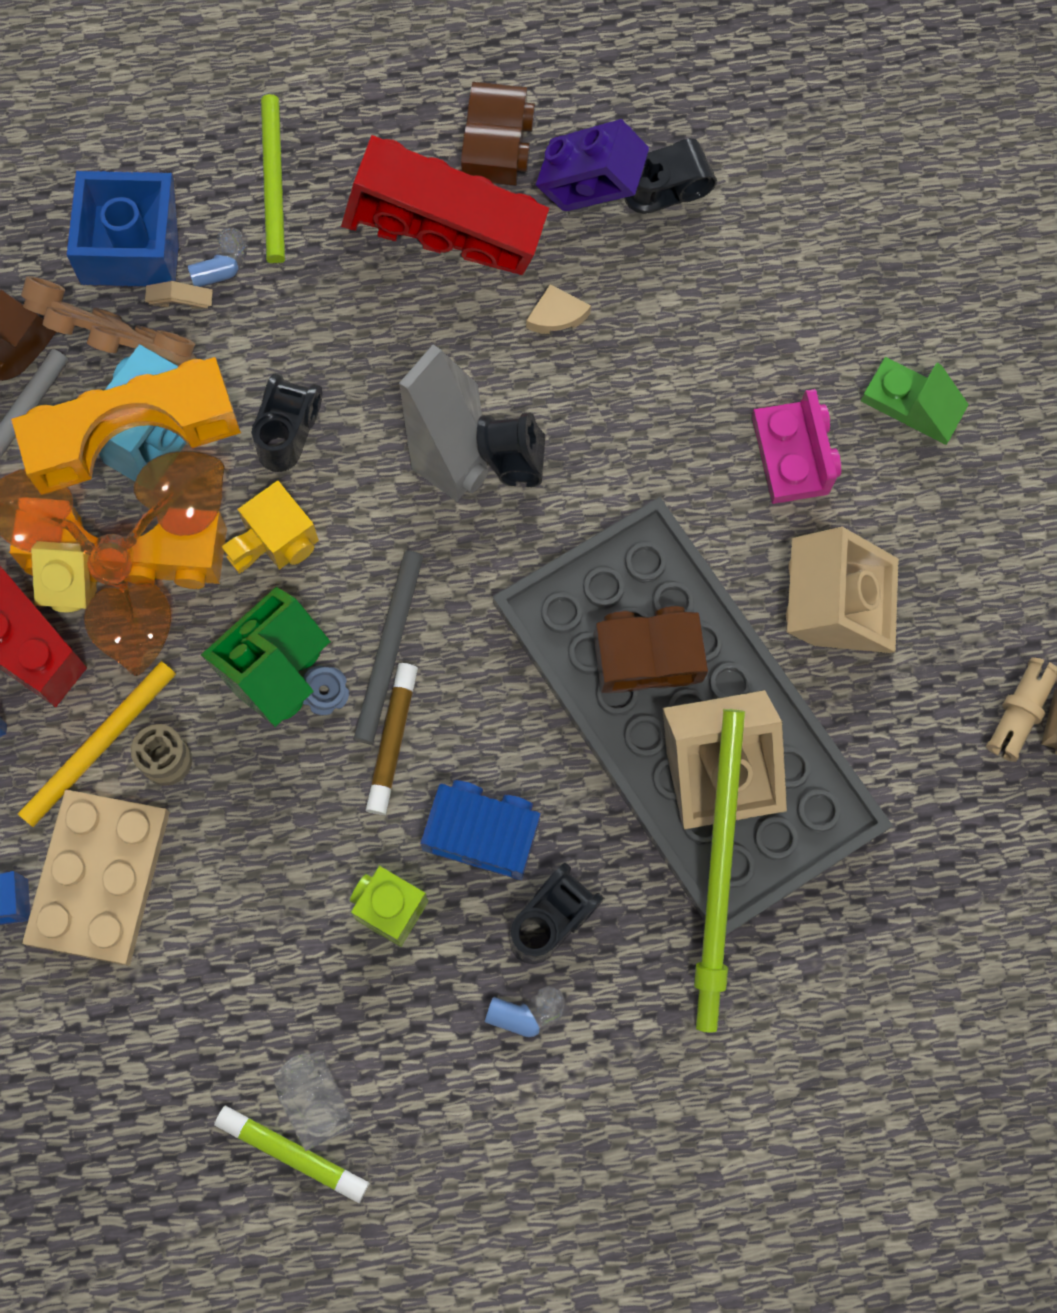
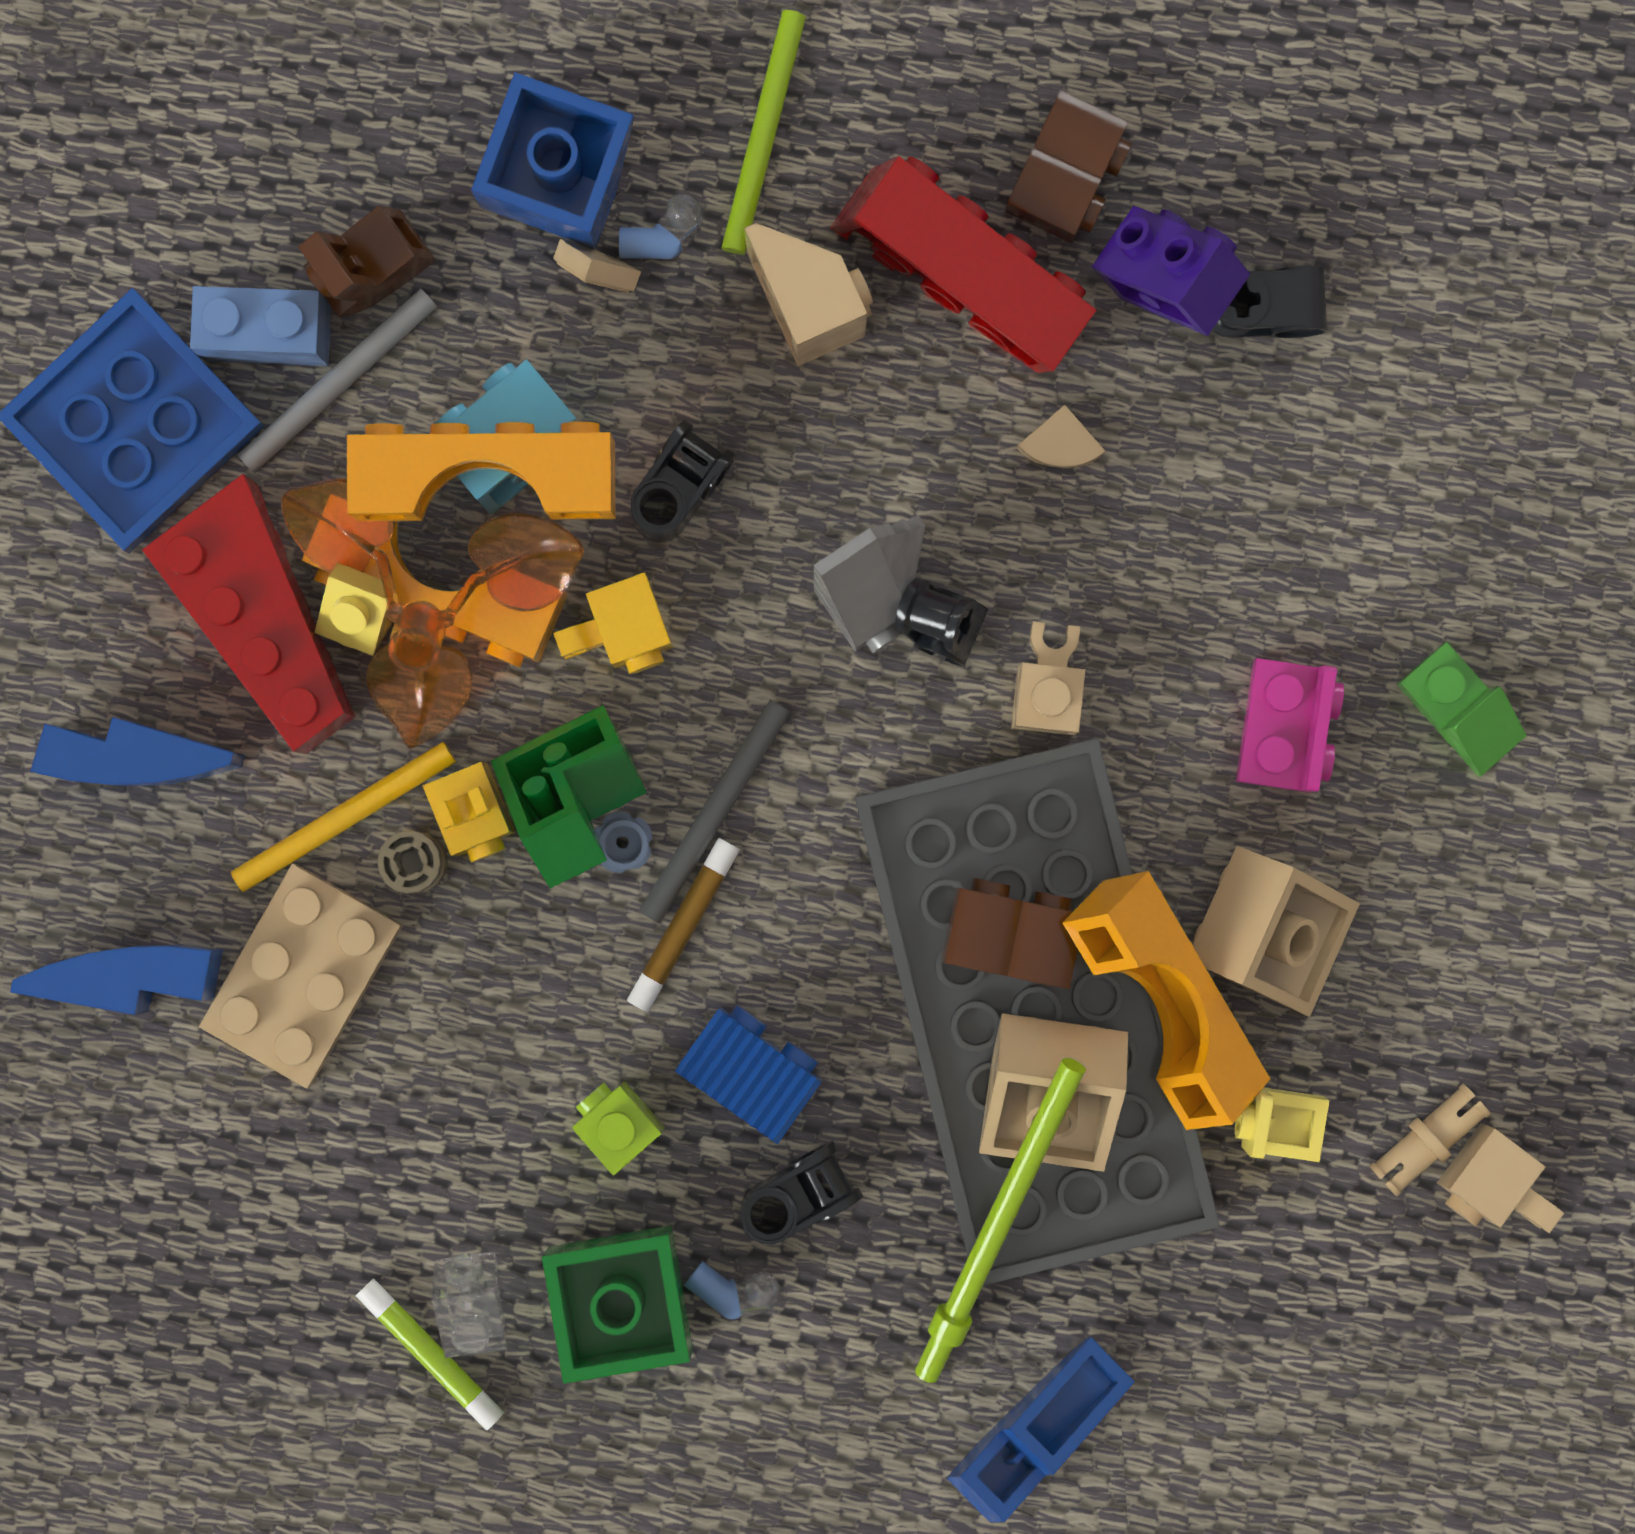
camera: 20 degrees right, 15 degrees up
(105, 327) = (496, 301): medium nougat plant -> none
(196, 702) = (470, 812): none -> yellow brick
(336, 255) = (809, 292): none -> tan slope
(434, 1048) = (617, 1304): none -> green brick
(610, 474) = (1049, 692): none -> tan brick
(815, 1042) = (1040, 1431): none -> blue slope
(829, 693) = (1206, 1058): none -> light orange arch
(908, 732) = (1283, 1125): none -> light yellow bracket

